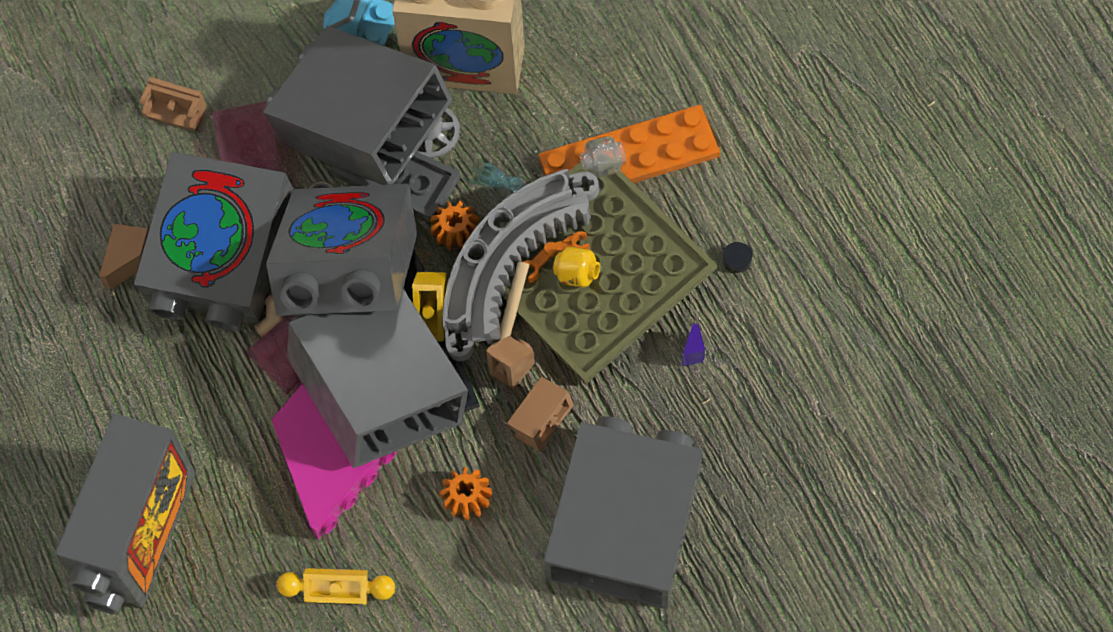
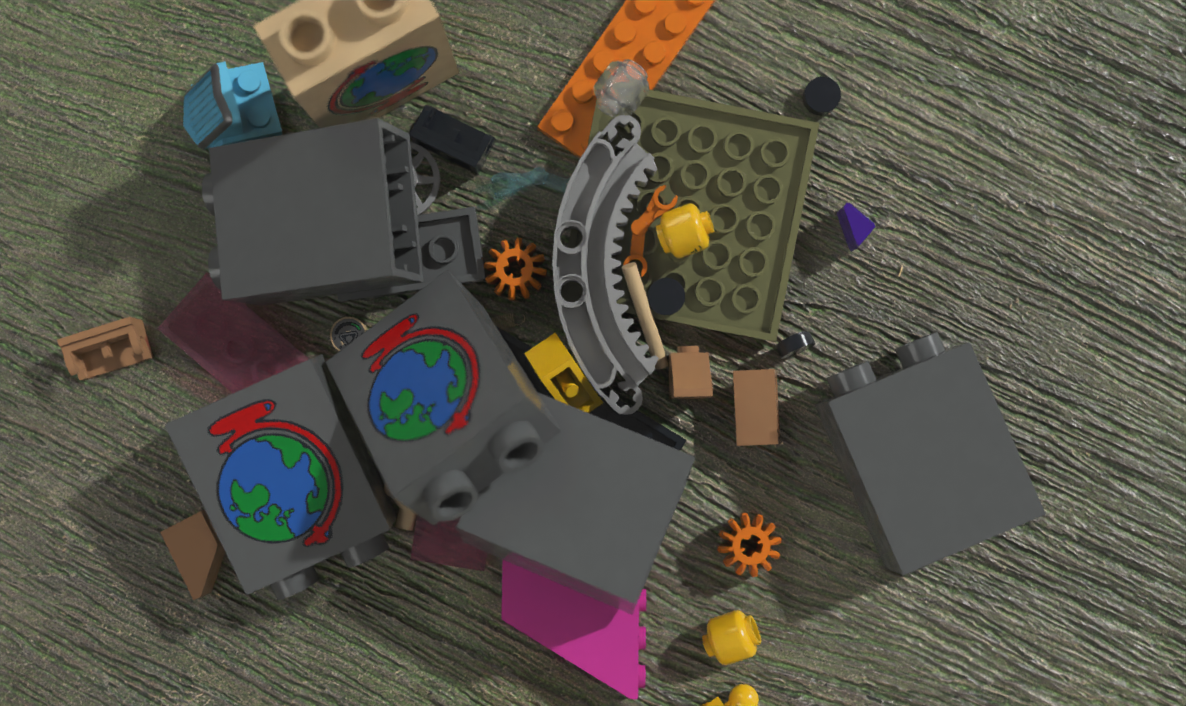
camera: 45 degrees left, 20 degrees up
(407, 542) = (731, 637): none -> yellow head
(479, 126) = (452, 139): none -> black hinge
(534, 302) = (666, 296): none -> black tile
(596, 392) = (795, 344): none -> black tile

